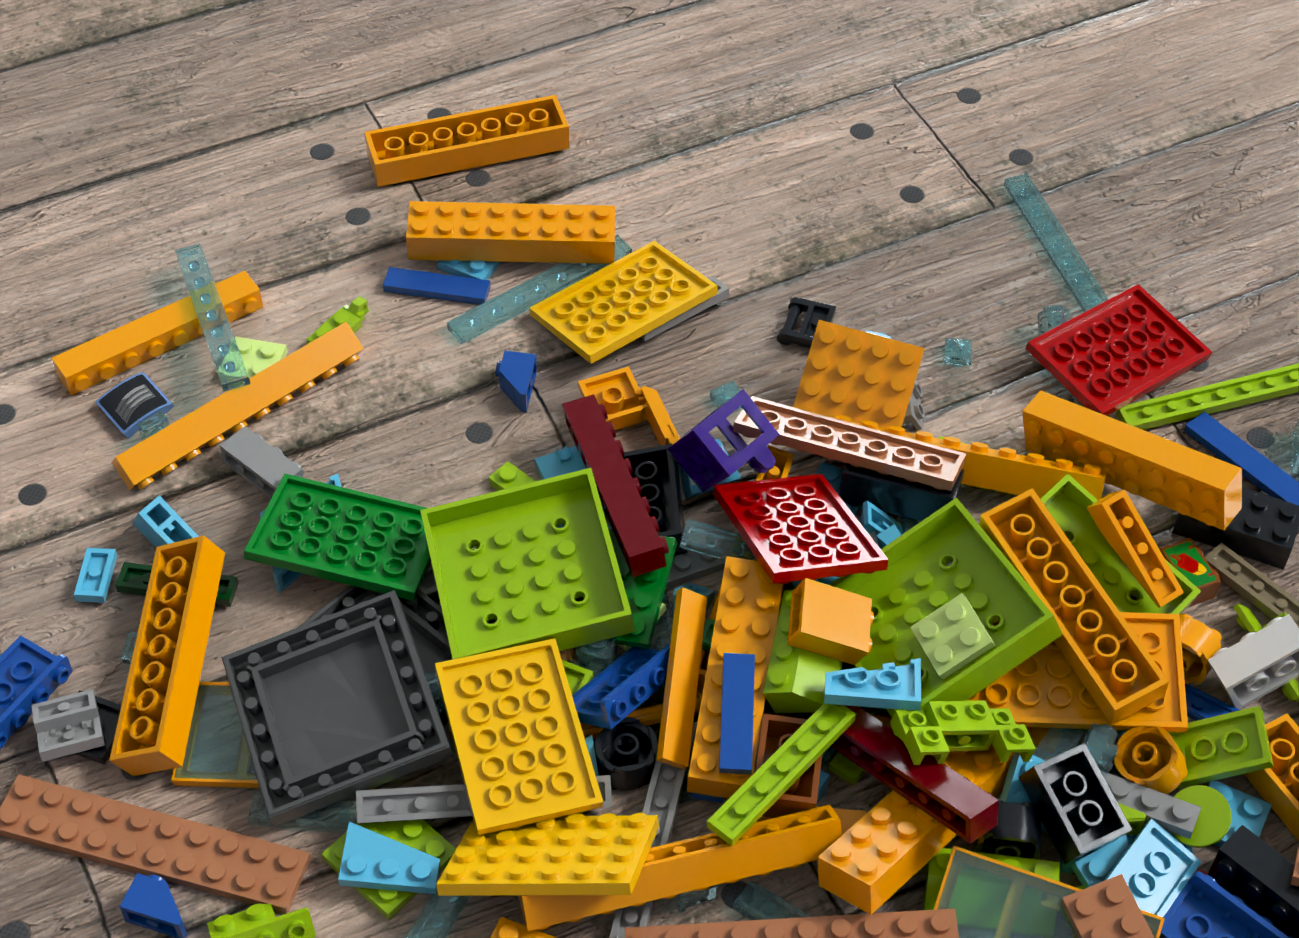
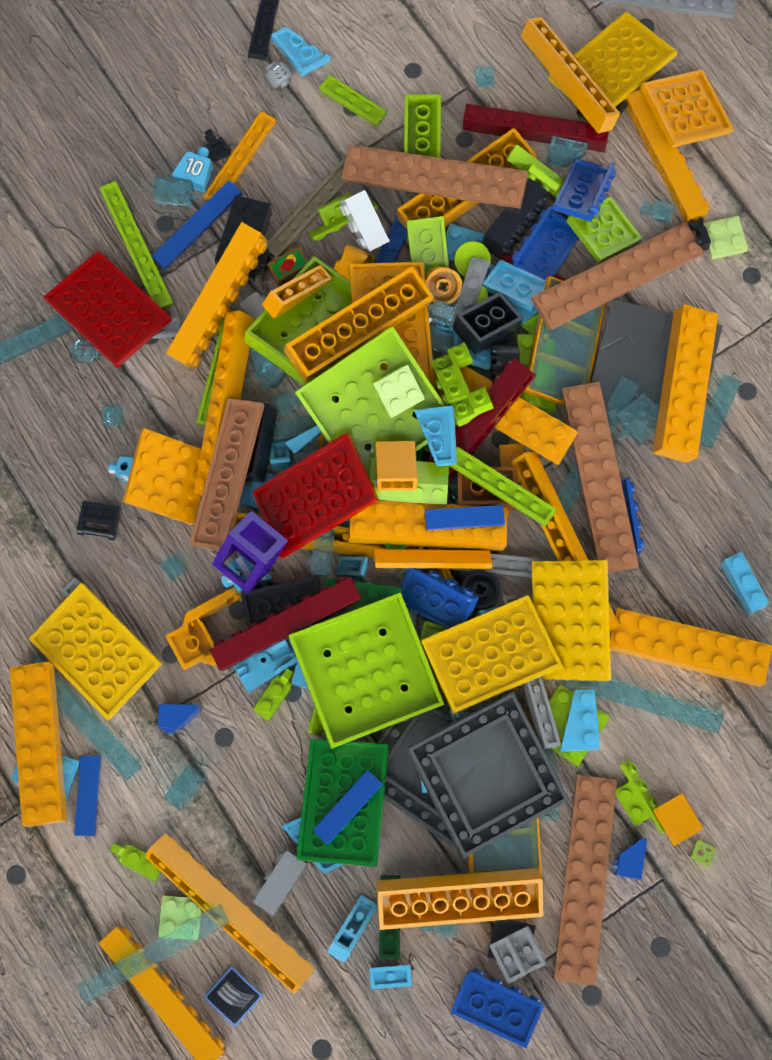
camera: 90 degrees left, 25 degrees up
(153, 425) = (257, 971): clear light blue plate -> none
(336, 532) = (347, 807): none -> blue tile
(417, 376) = (185, 788): none -> clear light blue brick
(1200, 537) = (262, 268): none -> black plate

